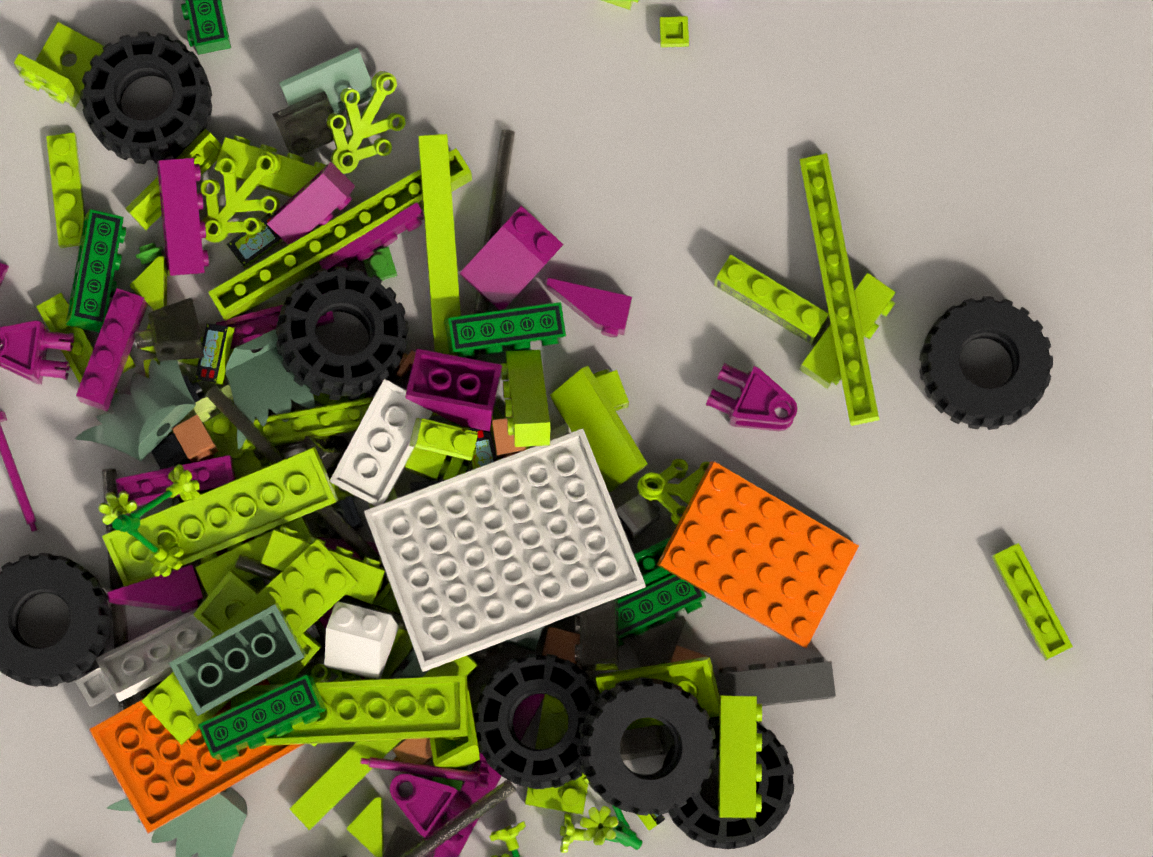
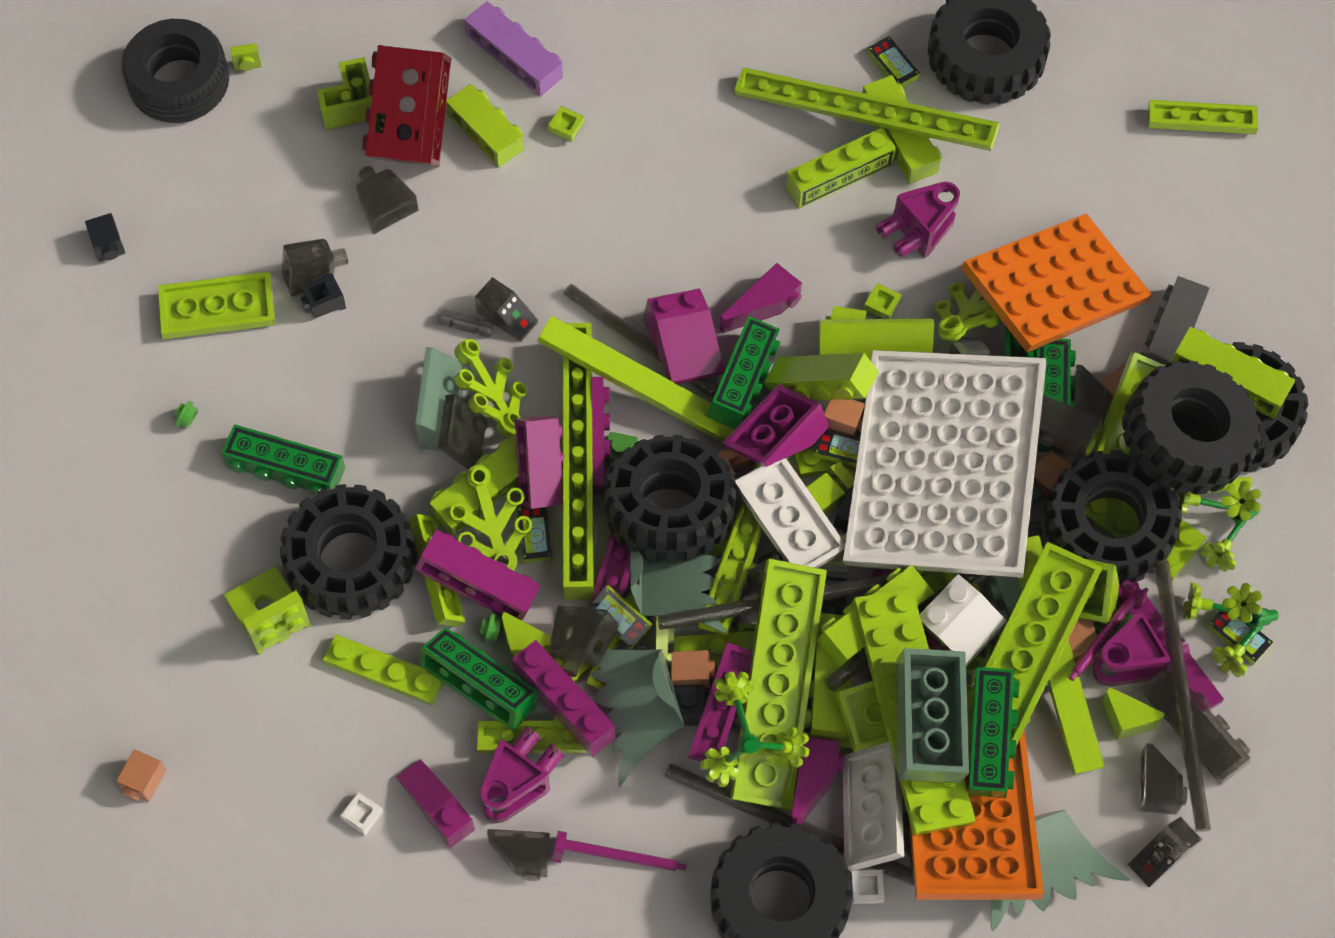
camera: 60 degrees left, 15 degrees down
(423, 64) = (466, 322): none -> dark grey axle
(443, 439) = (818, 459): lime brick -> none
(452, 90) = (505, 309): none -> slope
(655, 410) = (882, 301): none -> lime plate
(921, 286) = (893, 61): none -> tile

